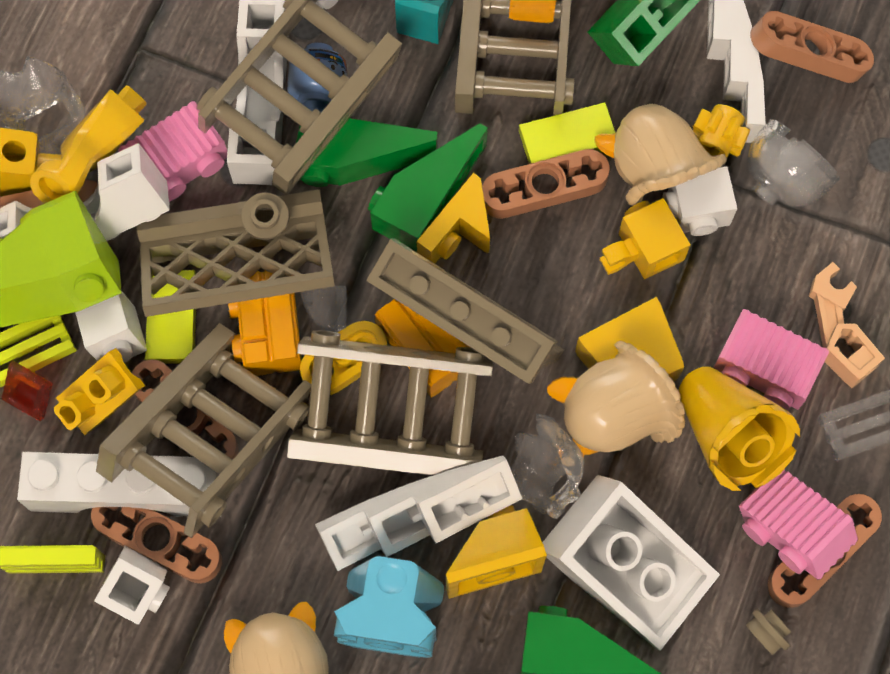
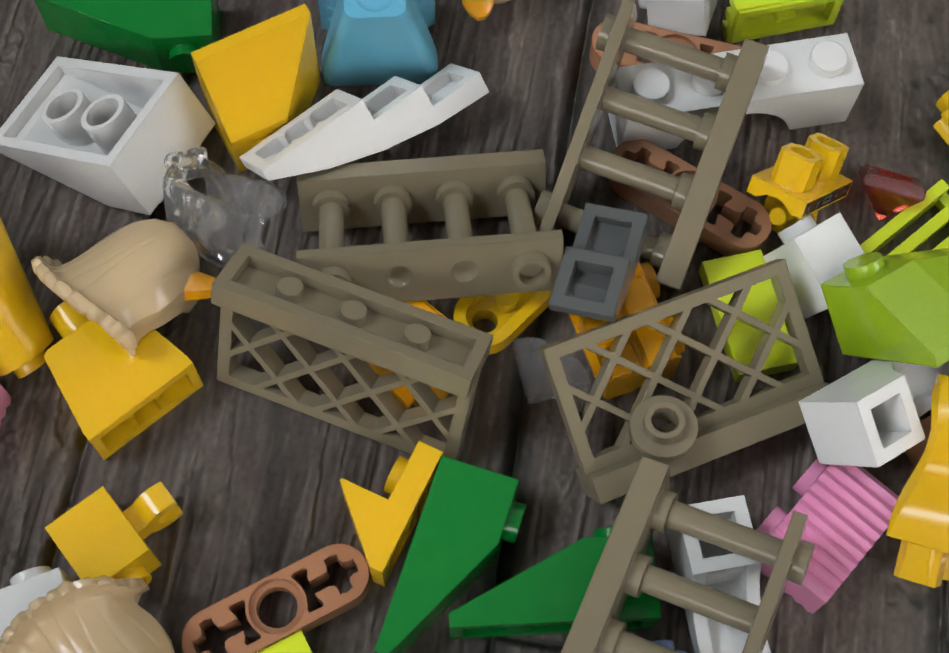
camera: 165 degrees right, 5 degrees down
(273, 339) = (601, 263): none -> dark grey slope

